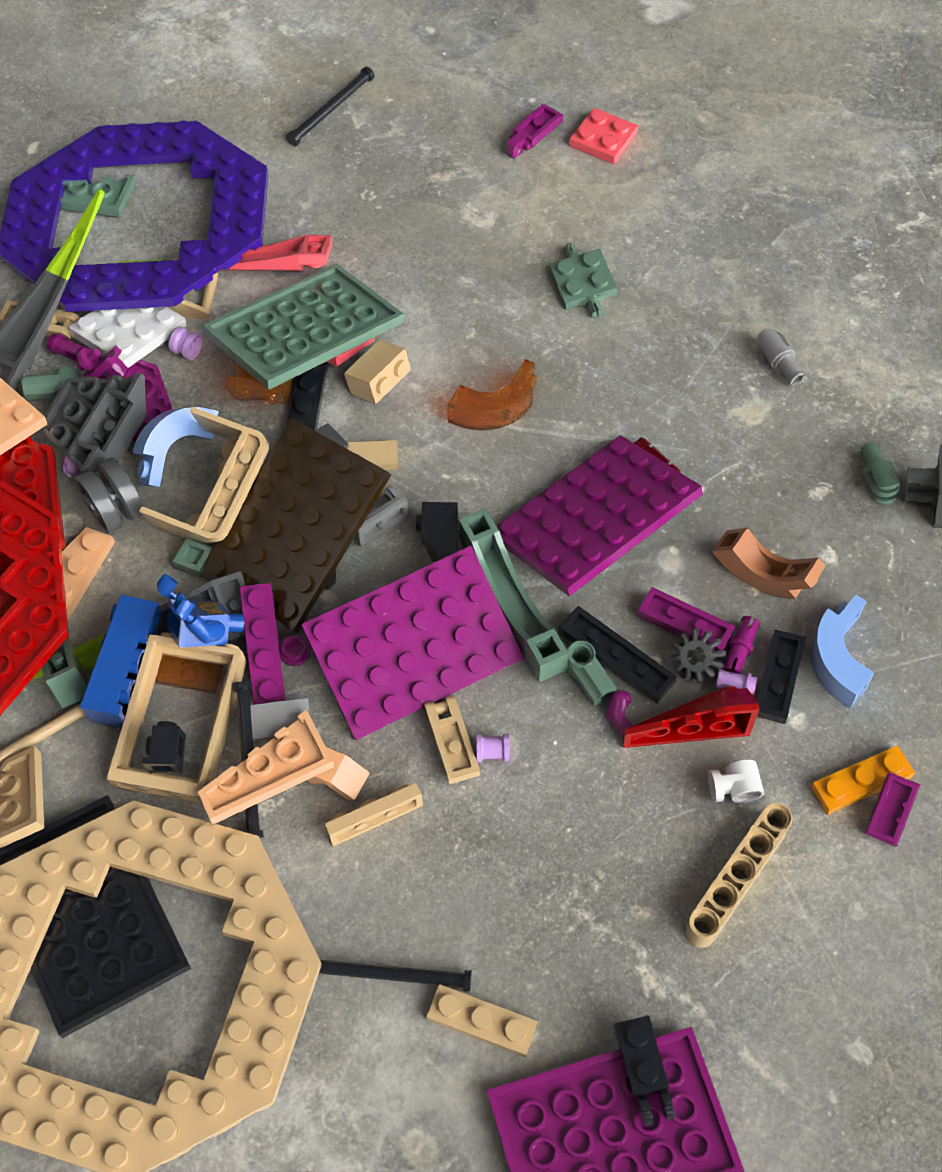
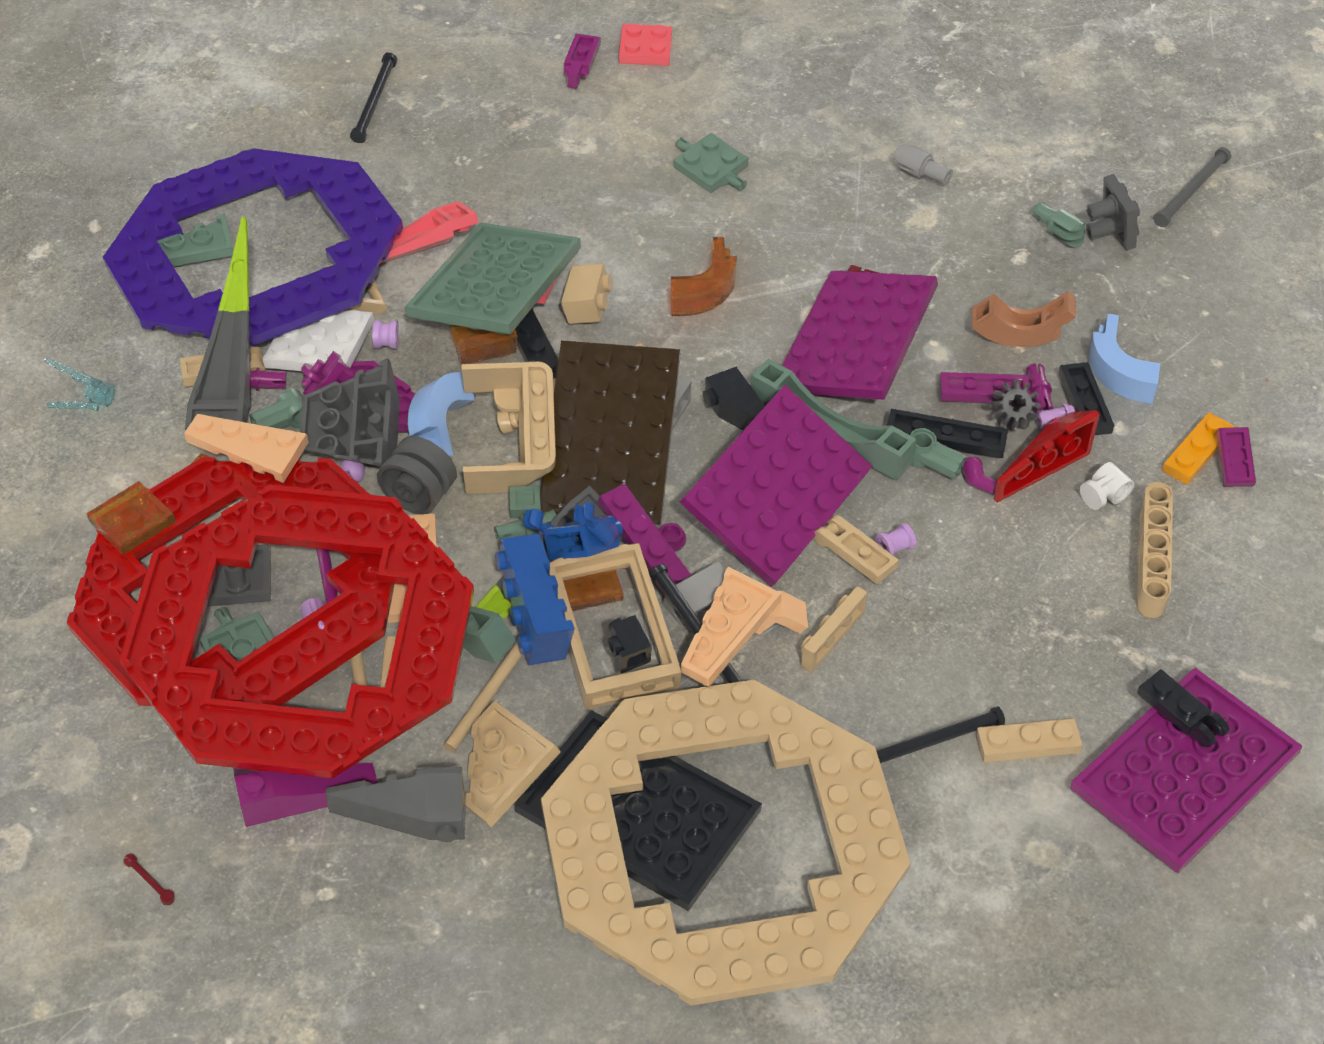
camera: 30 degrees left, 10 degrees down
(185, 582) = (517, 528): none -> sand green pin

